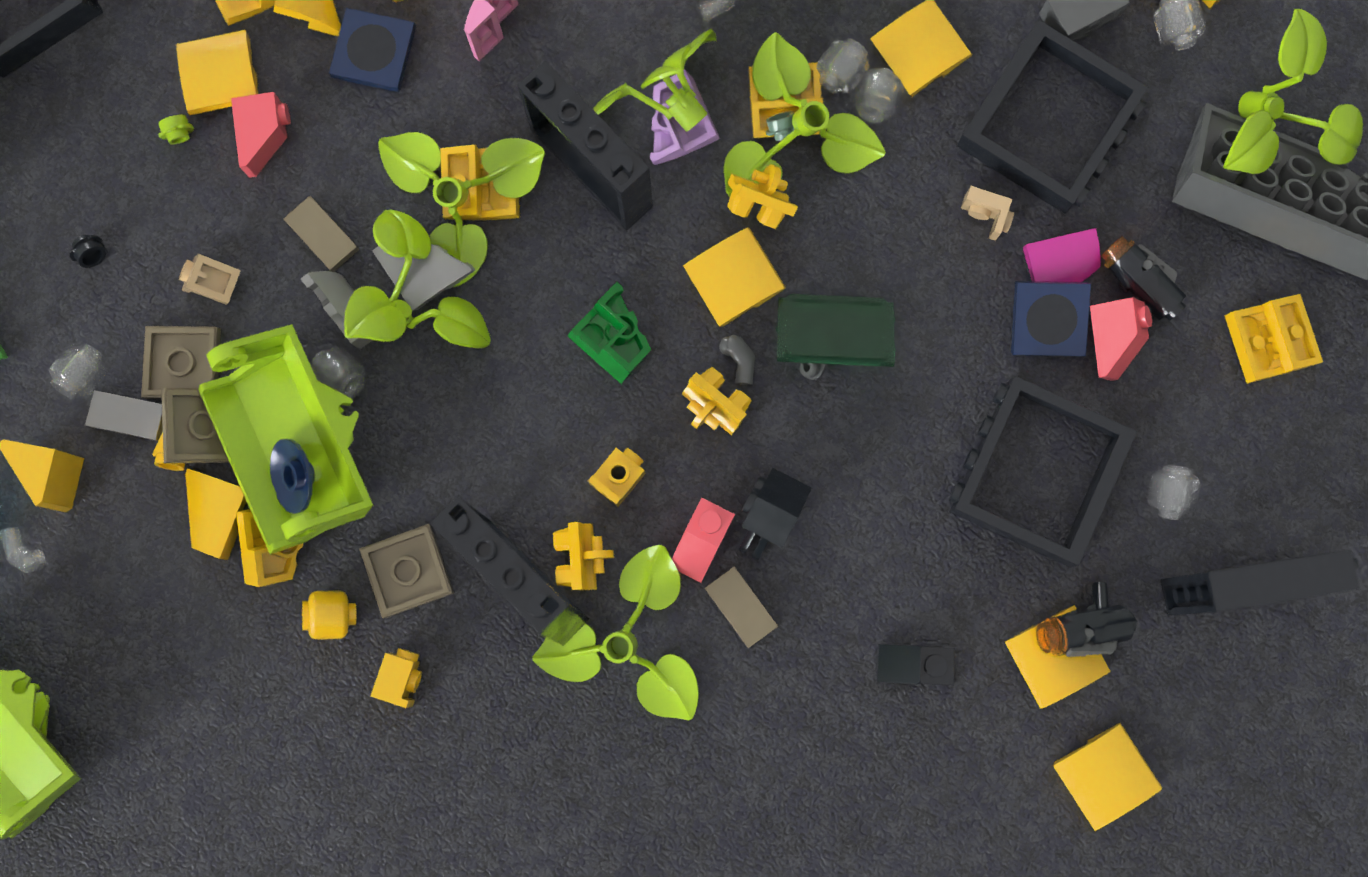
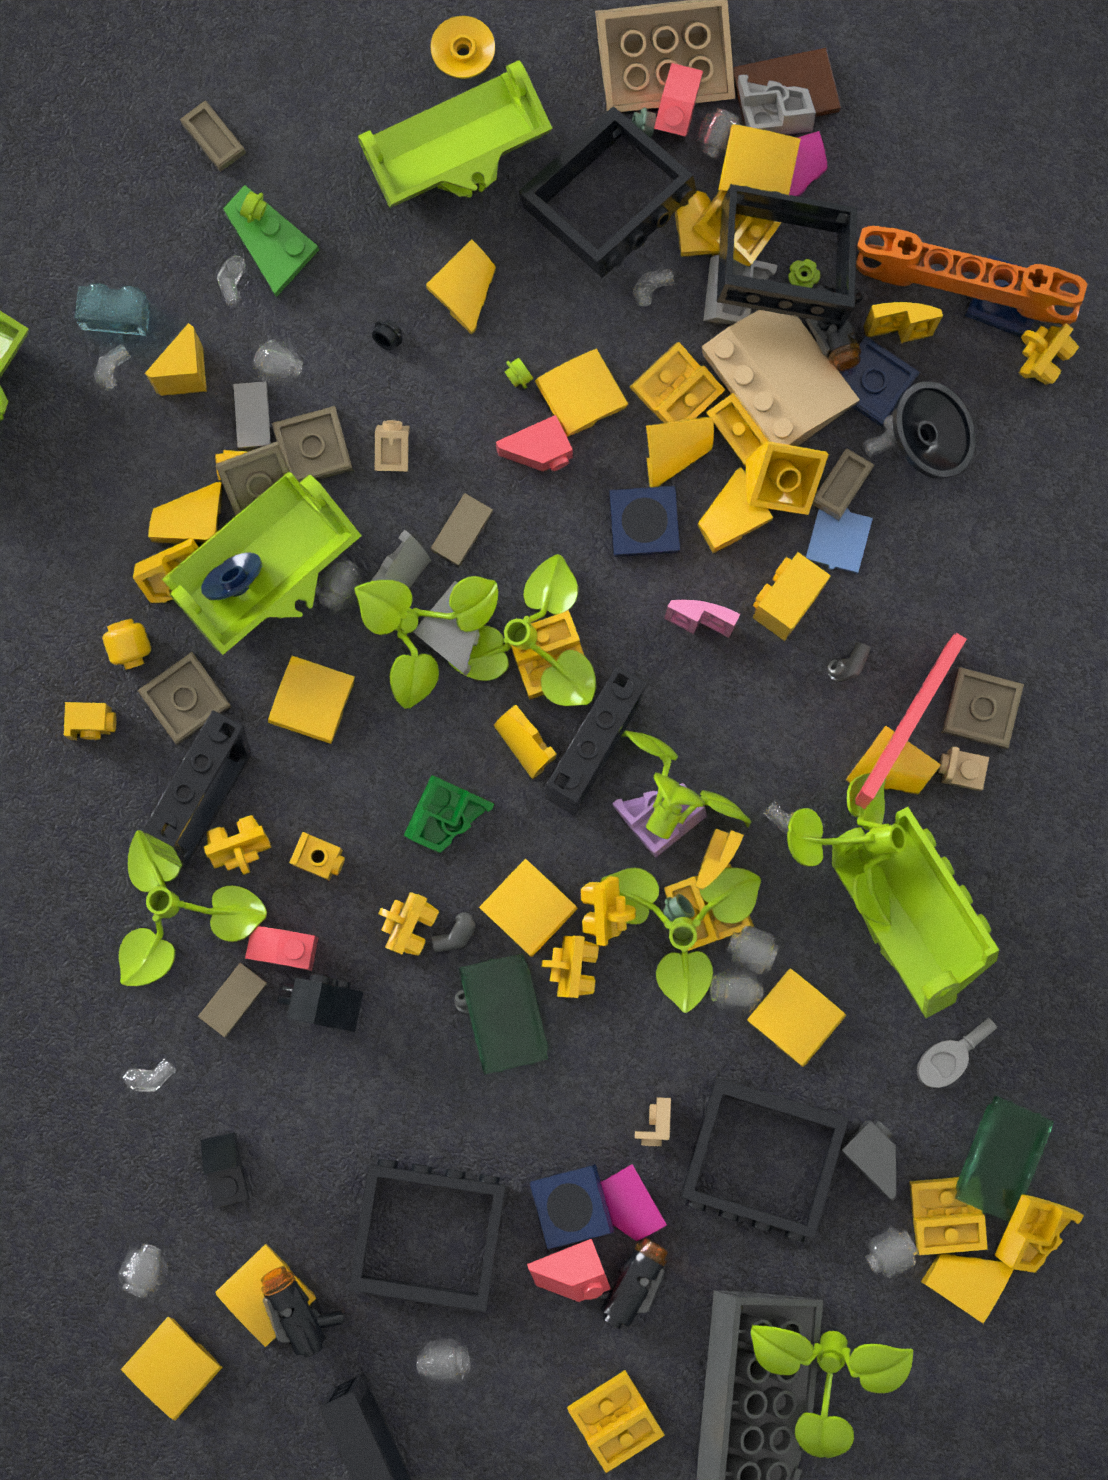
camera: 70 degrees right, 0 degrees up
(62, 157) = (464, 284): none -> yellow slope
(450, 437) = (311, 699): none -> yellow slope
(563, 228) = (524, 741): none -> yellow slope
(739, 67) = (717, 856): none -> yellow slope
(800, 718) = (149, 1080): none -> clear arm
(807, 251) = (567, 966): none -> yellow hips
(999, 778) = (142, 1271): none -> clear head

